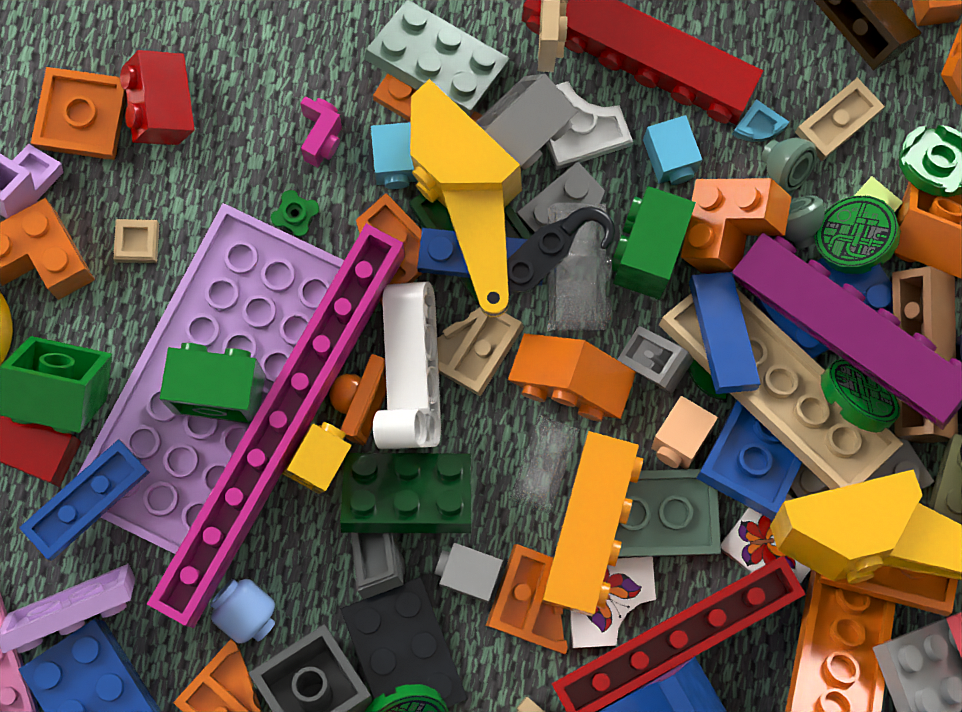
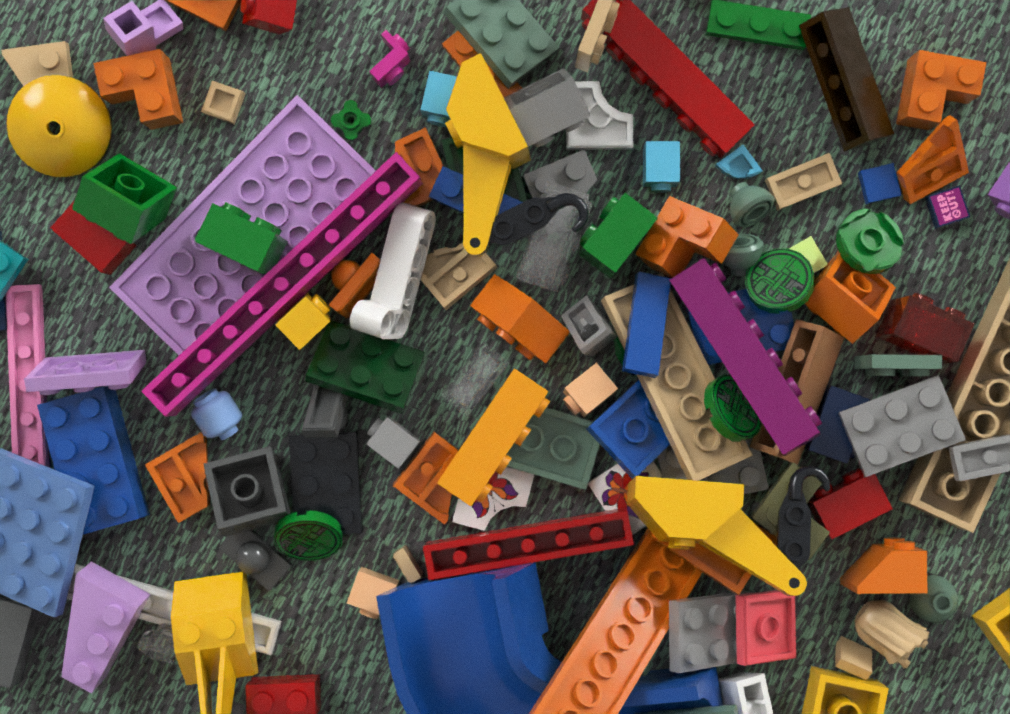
camera: 30 degrees right, 10 degrees up
(84, 500) = (122, 294): blue plate -> none
(925, 95) = (879, 183): none -> blue tile

